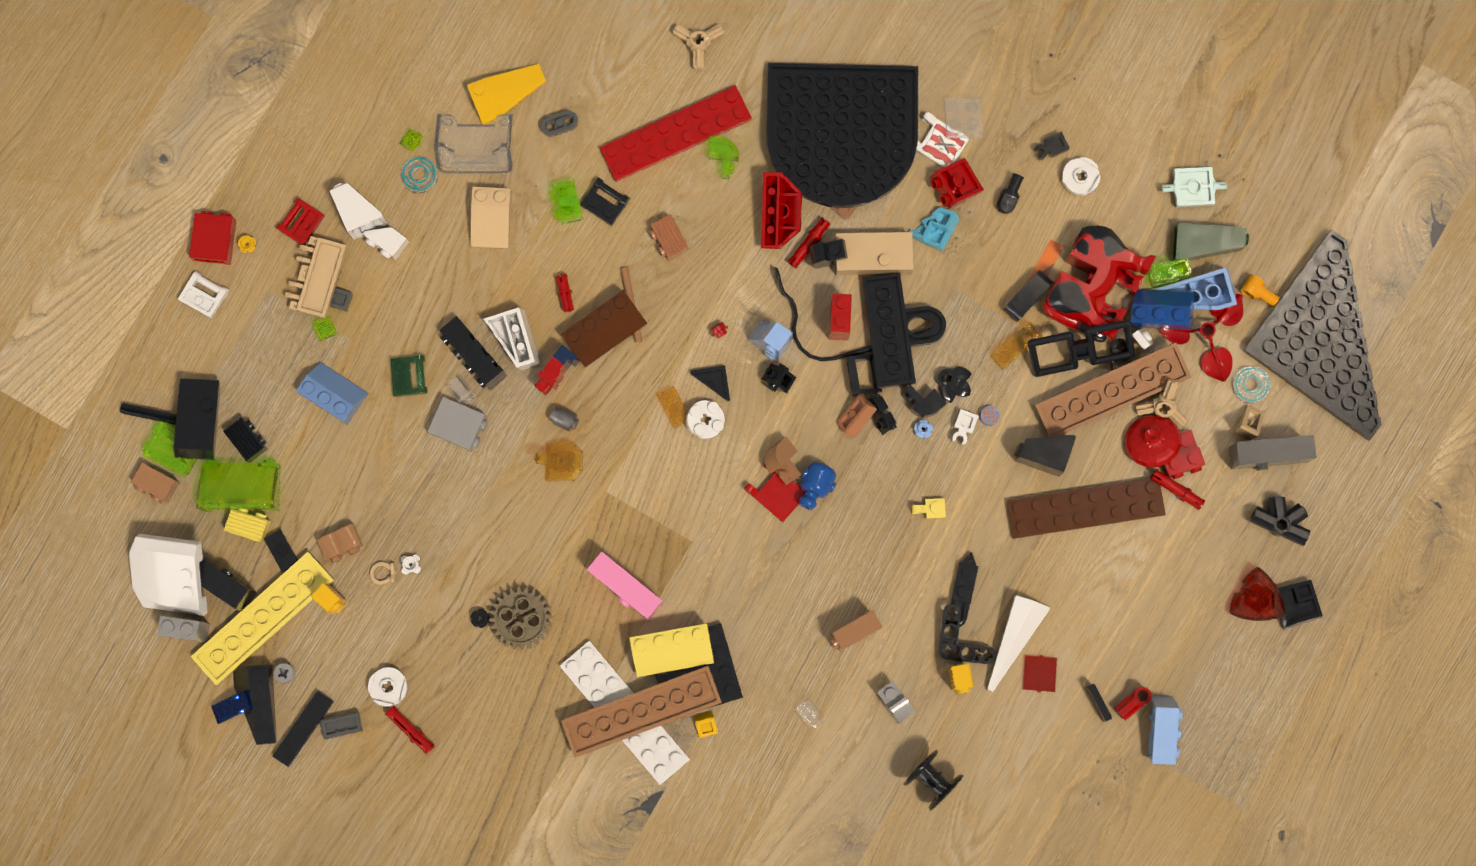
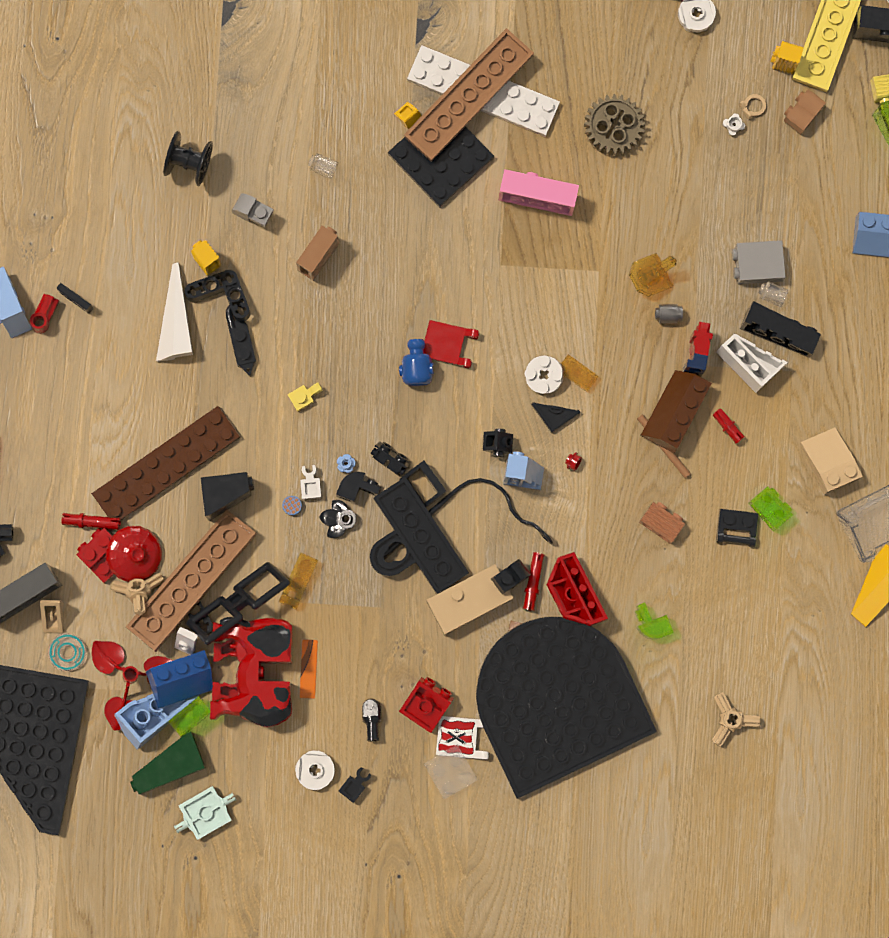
camera: 145 degrees right, 0 degrees up
(281, 550) = (851, 82): black plate -> none
(402, 376) = (829, 280): clear green plate -> none
(480, 623) = (654, 108): black plate -> none
(558, 121) = (816, 578): dark grey plate -> none
(671, 650) = (470, 159): light yellow slope -> none
(675, 133) = (706, 624): red plate -> none
(778, 460) = (461, 367): medium nougat brick -> none
(840, 316) = (470, 522): red brick -> none
(856, 416) = (411, 443): nougat slope -> none
(937, 228) = (423, 653): medium azure slope -> none
(1028, 295) = (309, 632): black beam -> none
(1040, 673) = (138, 300): clear red piece -> none
(1255, 288) = (104, 743): light orange pin -> none

